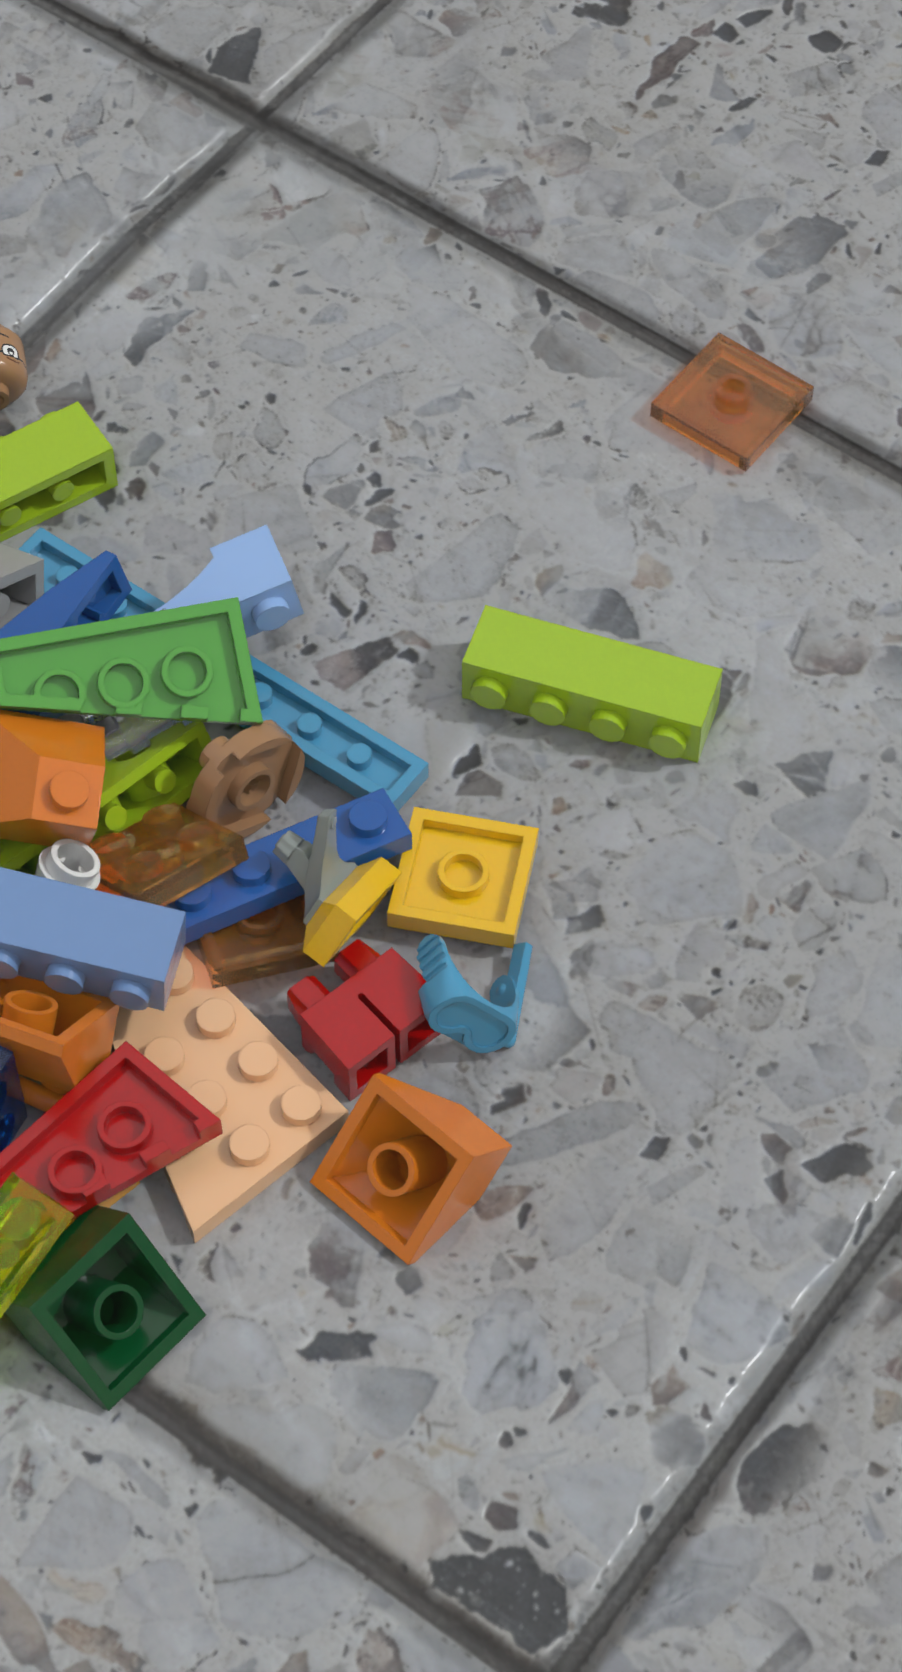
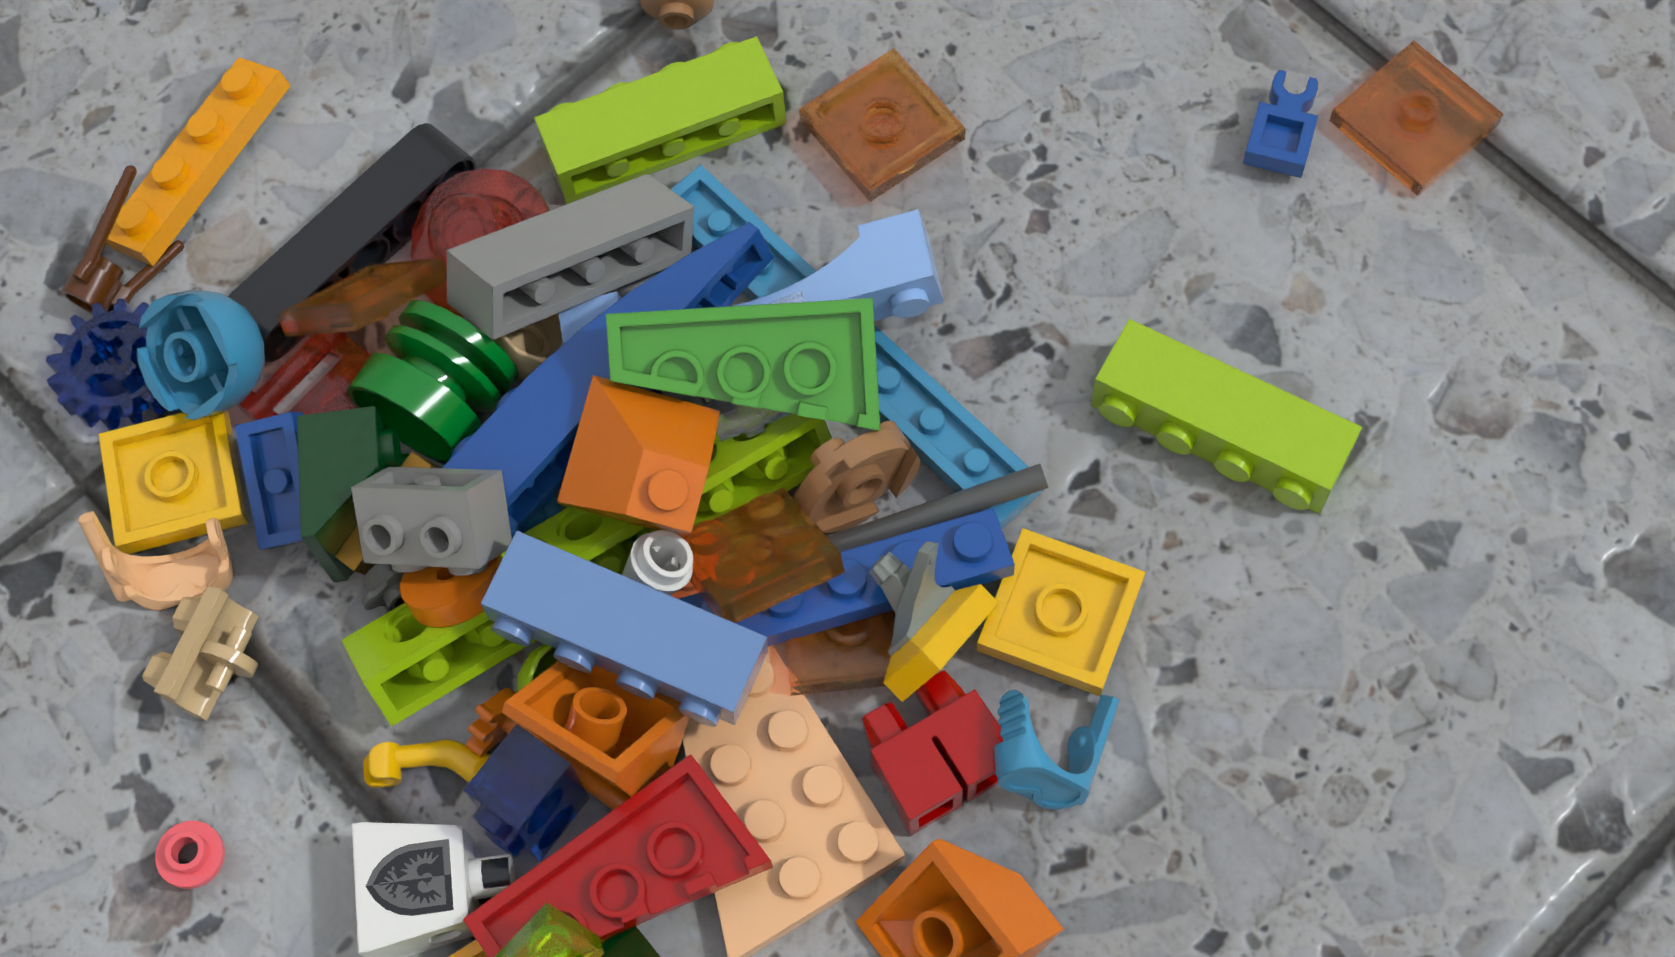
camera: 15 degrees right, 10 degrees up
(214, 470) = (882, 124): none -> clear orange plate
(372, 779) = (945, 508): none -> dark grey bar
(606, 426) = (1283, 129): none -> blue plate

